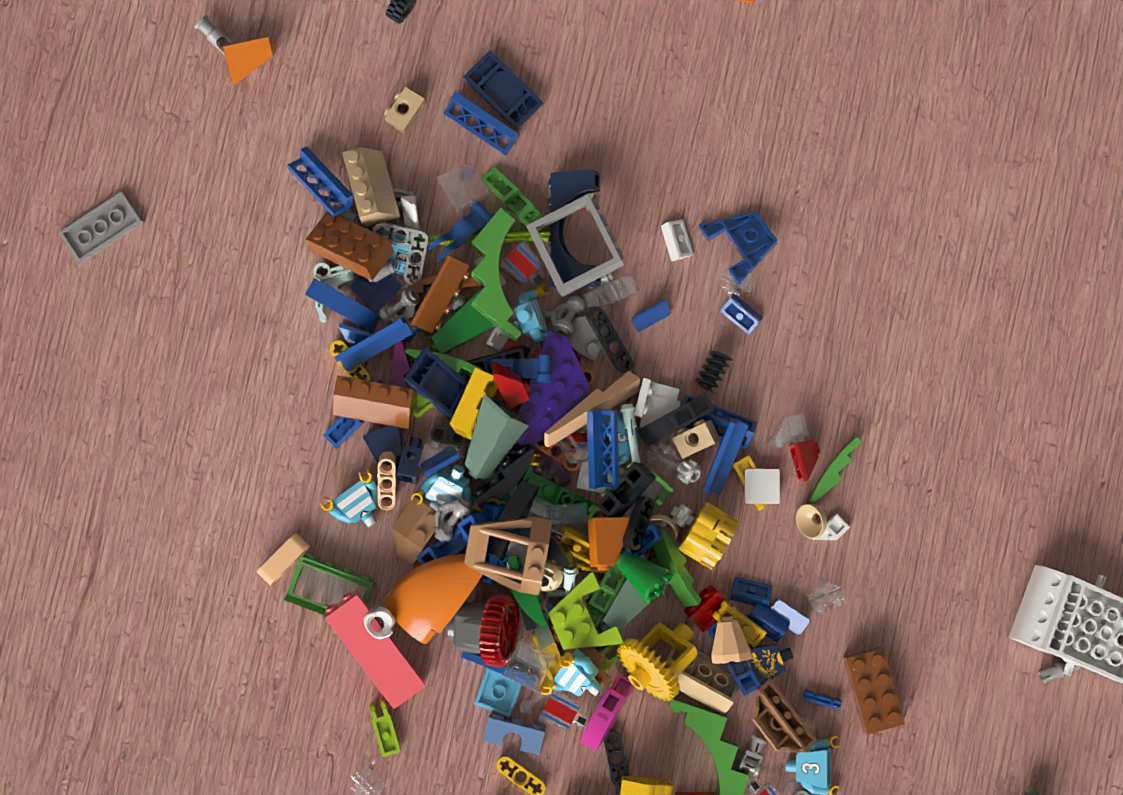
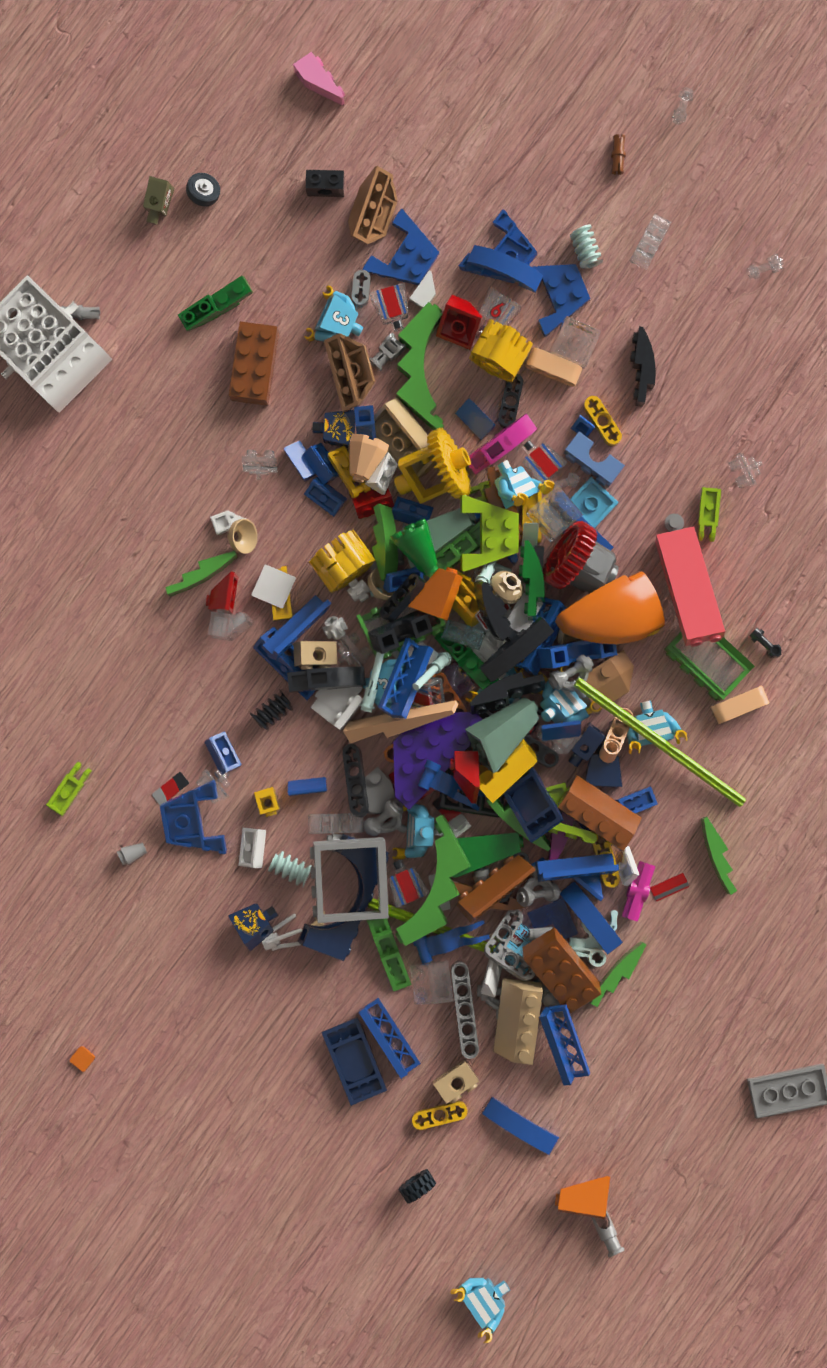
camera: 155 degrees left, 0 degrees up
(253, 415) = (716, 848): none -> bright green slope
(272, 623) = (772, 650): none -> black bar
(282, 364) = (669, 887): none -> red sticker
(295, 272) = (623, 967): none -> bright green slope
(309, 348) = (638, 891): none -> dark pink piece
(327, 364) = (627, 868): none -> white tile
(331, 95) = (520, 1126): none -> blue slope
(346, 491) = (659, 742): none -> lime axle
(384, 617) = (669, 611): white hair -> none
(389, 375) = (573, 832): none -> lime hinge
(408, 67) = (424, 1113): none -> yellow beam
(413, 706) = (674, 522): none -> light grey plate
(421, 167) = (463, 1019): none -> light grey beam
(535, 558) = (508, 604): medium nougat windscreen -> none
(537, 762) = (583, 425): none -> blue slope
(575, 483) = (443, 659): none -> light aqua pin
(622, 165) = (273, 940): none -> white plant
(634, 235) = (290, 868): none -> light aqua piece
(642, 726) = (475, 419): none -> blue slope
(646, 171) = (253, 924): none -> dark blue torso
(664, 612) = (410, 511): none -> blue slope
(689, 287) = (263, 795): none -> yellow brick
(706, 634) = (383, 474): none -> white slope
(775, 262) = (170, 788): none -> sticker
(784, 188) = (131, 853): none -> light grey cone
(822, 699) = (303, 375): blue axle -> none
(867, 220) = (68, 790): none -> lime hinge
(934, 732) = (215, 305): none -> green slope

